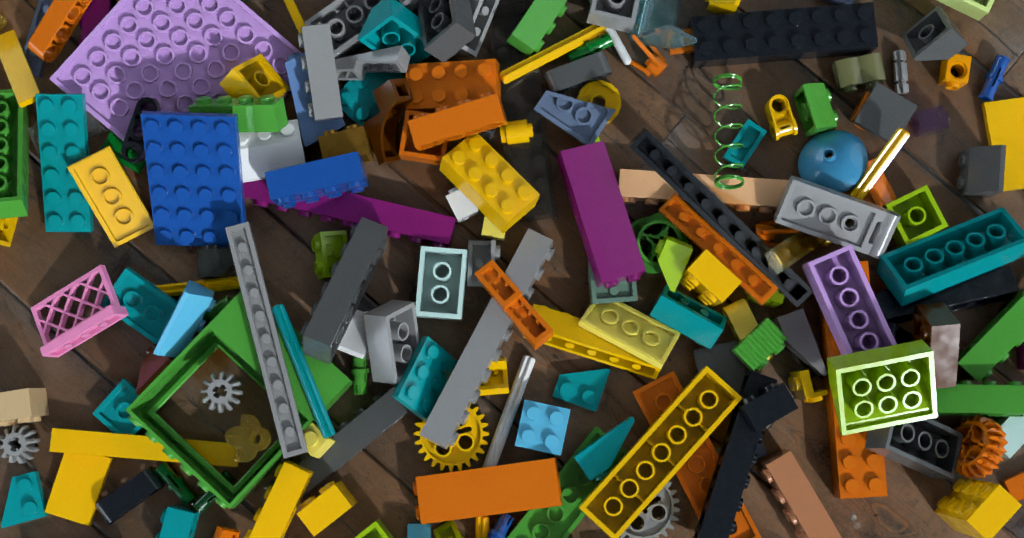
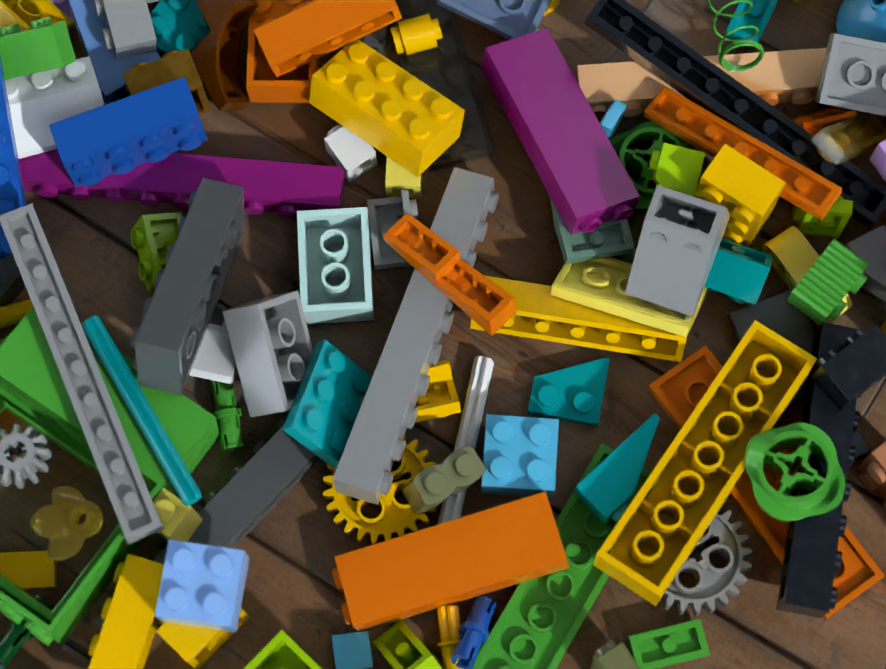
camera: 10 degrees left, 10 degrees down
(328, 493) = (202, 585): none -> light blue brick
(497, 435) = (442, 480): none -> olive brick
(636, 210) = (613, 118): none -> medium azure tile
(663, 313) = (676, 250): none -> light grey slope
(730, 452) = (808, 440): none -> bright green piece

